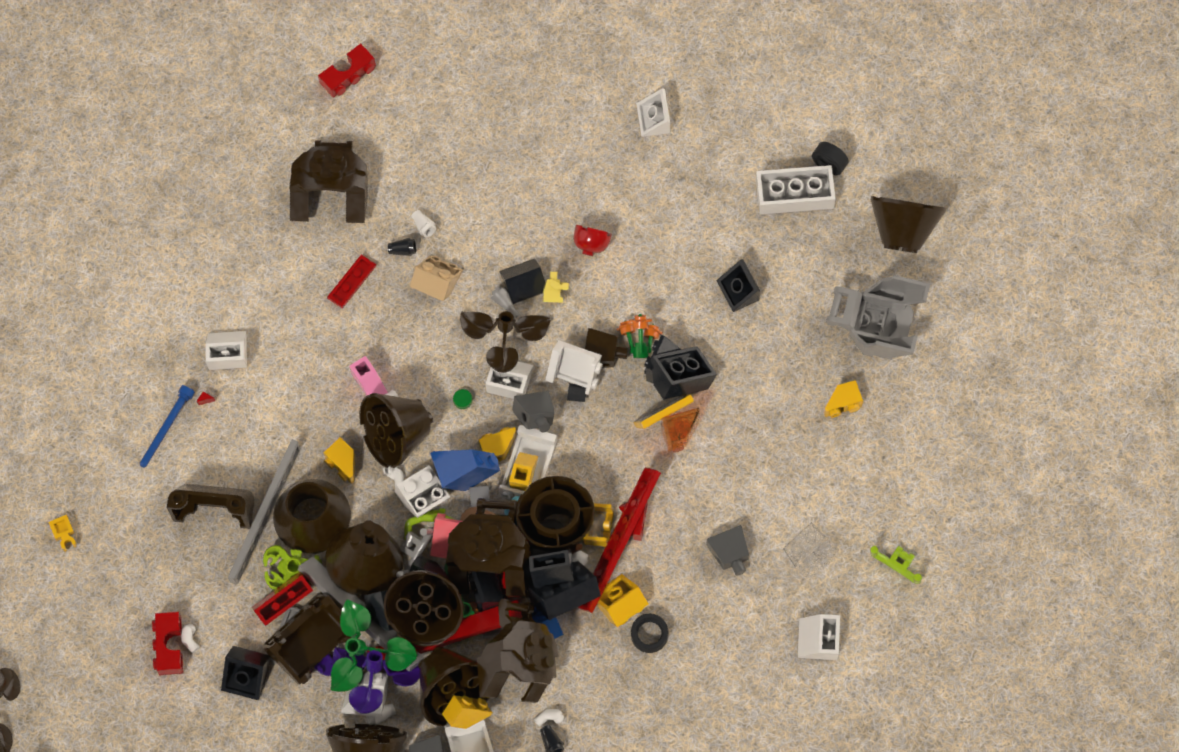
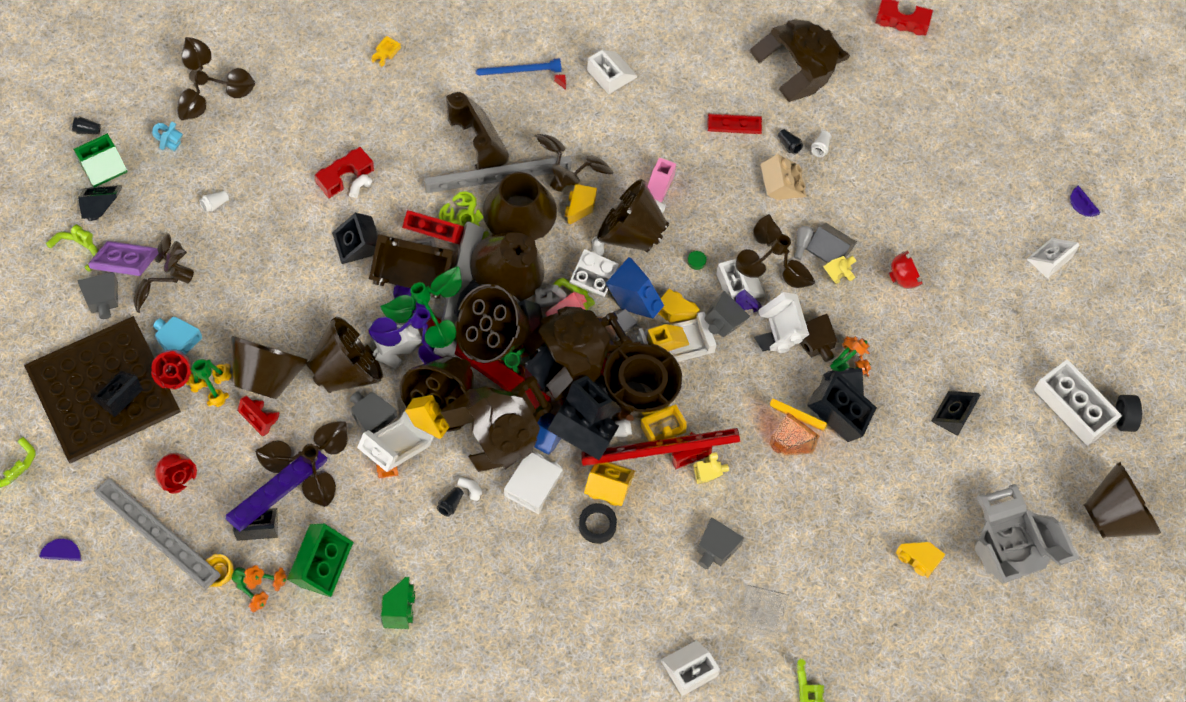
camera: 50 degrees right, 5 degrees down
(308, 460) = (563, 176): none -> dark brown plant
(532, 383) = (747, 301): none -> dark purple tile
(580, 662) = (533, 482): none -> white panel
(622, 57) = (1082, 203): none -> dark purple tile
(664, 515) = (710, 469): none -> light yellow piece

